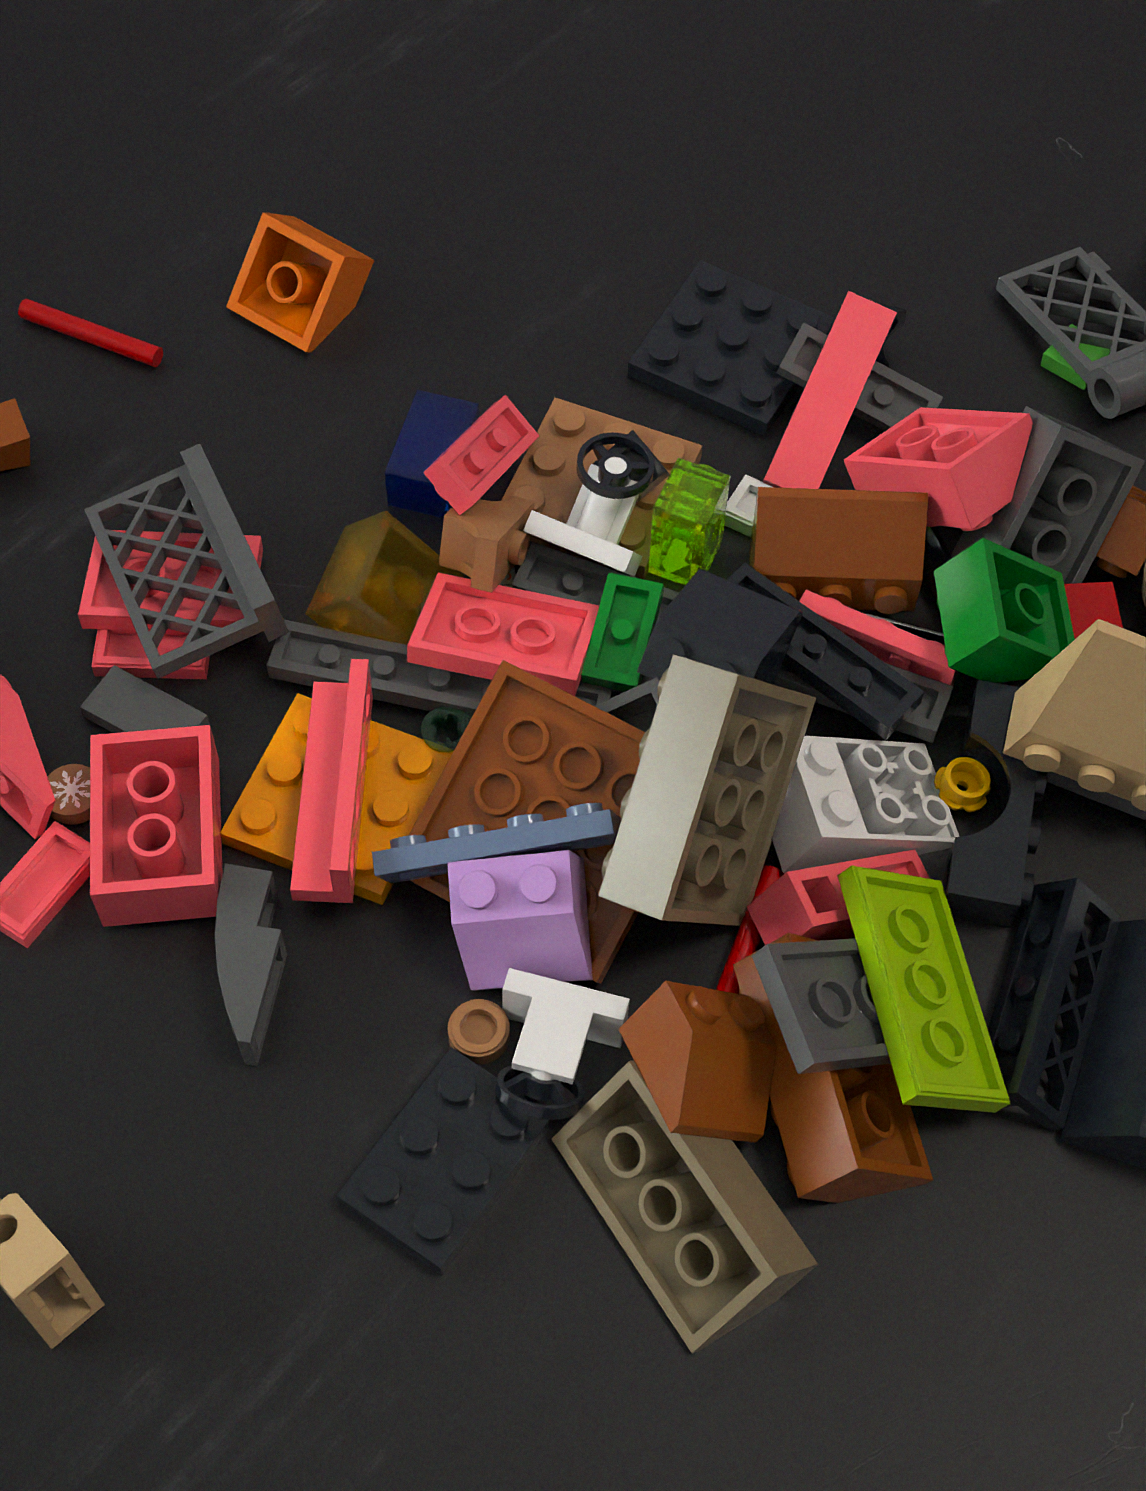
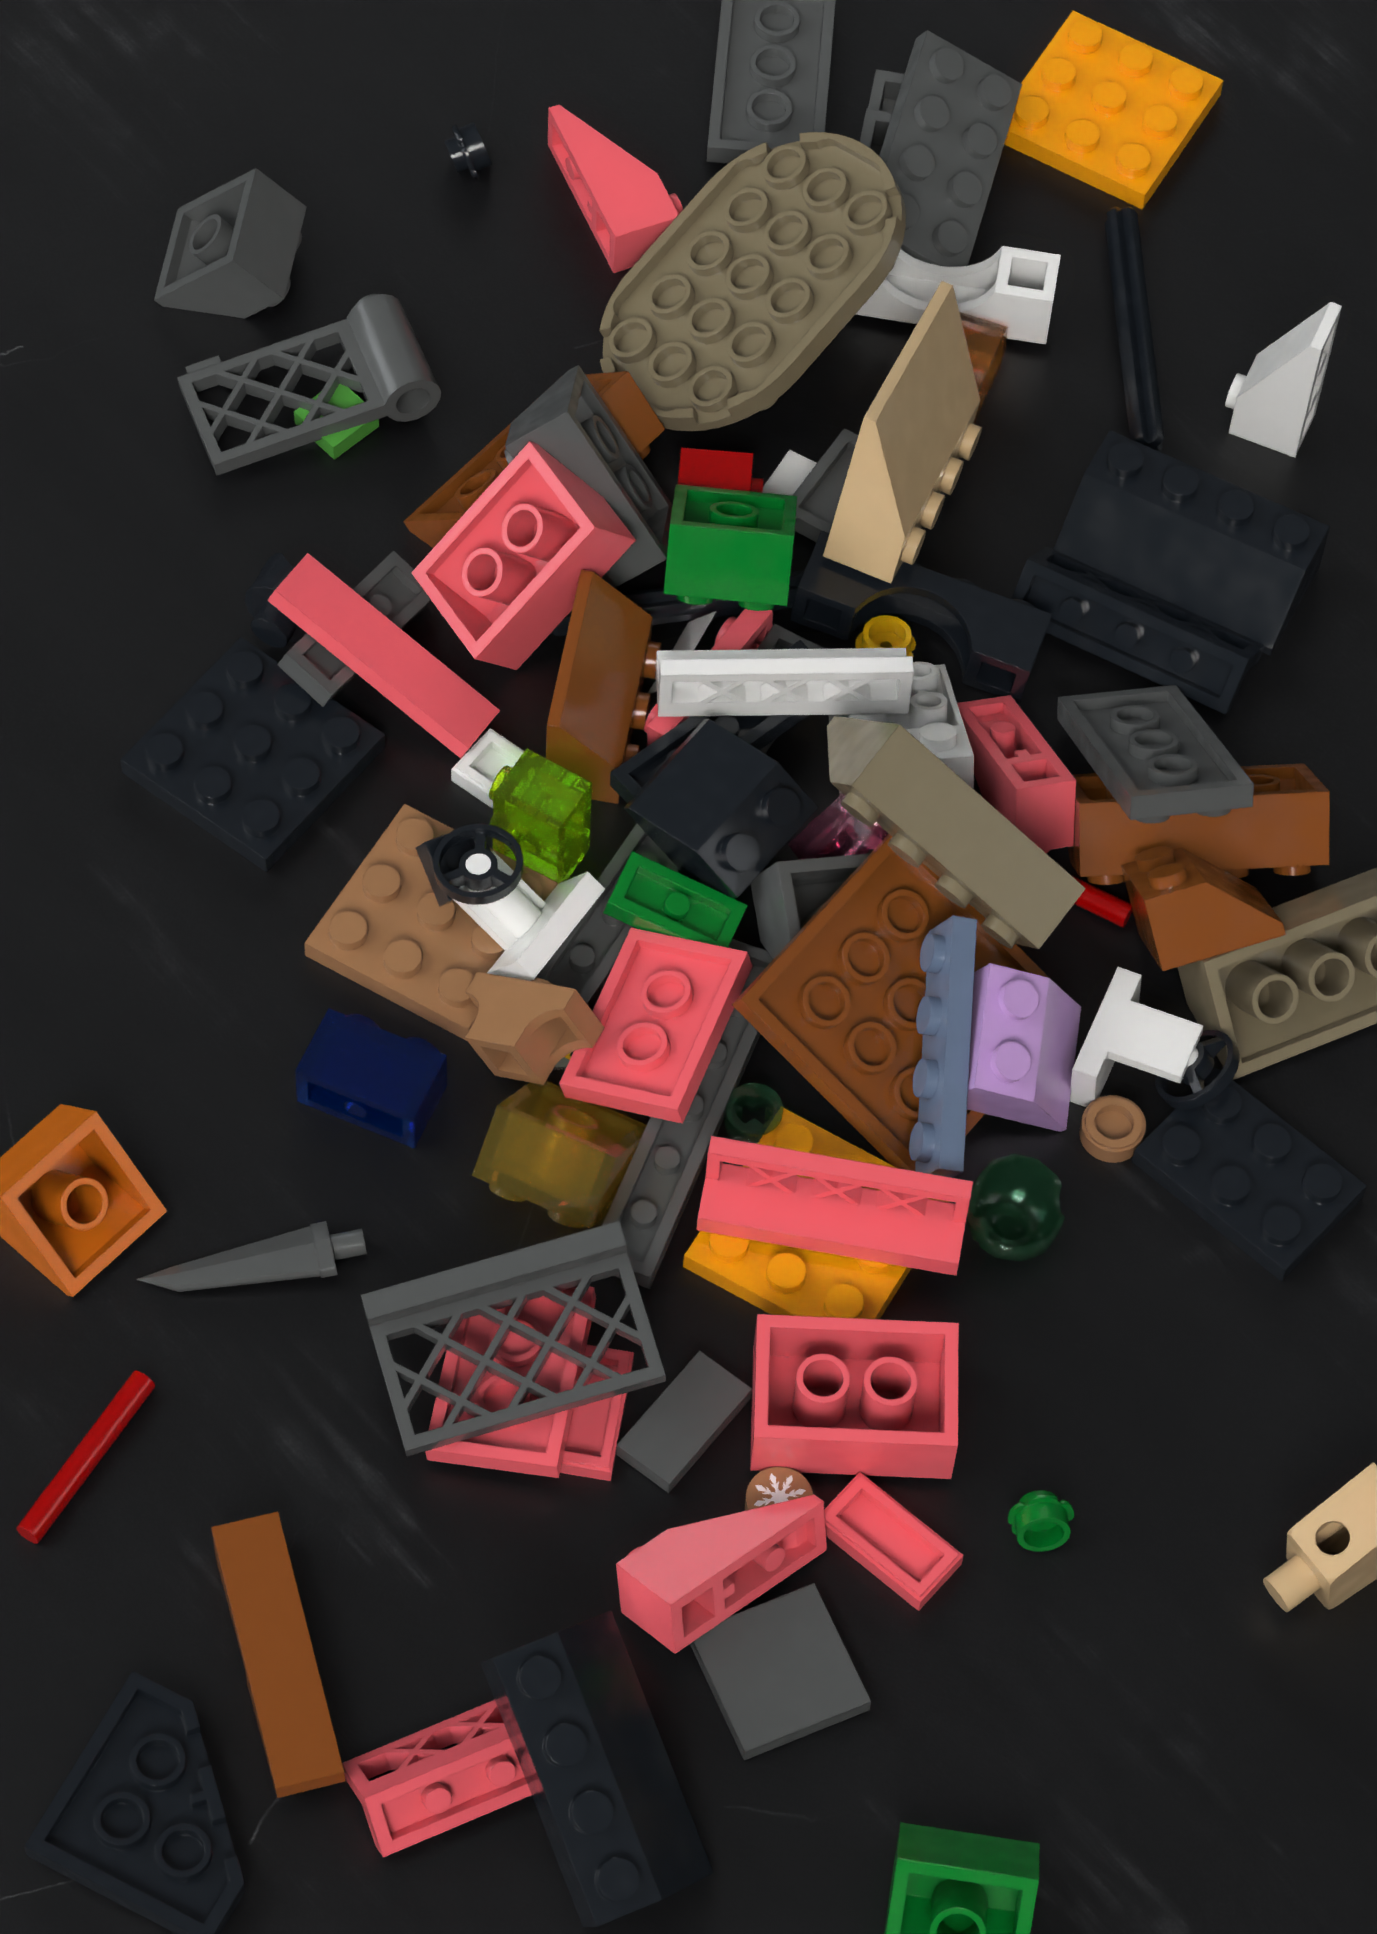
camera: 85 degrees left, 0 degrees up
(59, 999) = (1041, 1521): none -> green plate
(248, 954) = (1027, 1327): dark grey slope -> none
(271, 428) = (279, 1258): none -> dark grey bar
(365, 941) = (1015, 1208): none -> clear green hair
(481, 455) = (420, 1006): coral plate -> none
(867, 674) = (783, 682): none -> white fence
(922, 991) = (1140, 708): lime tile -> none

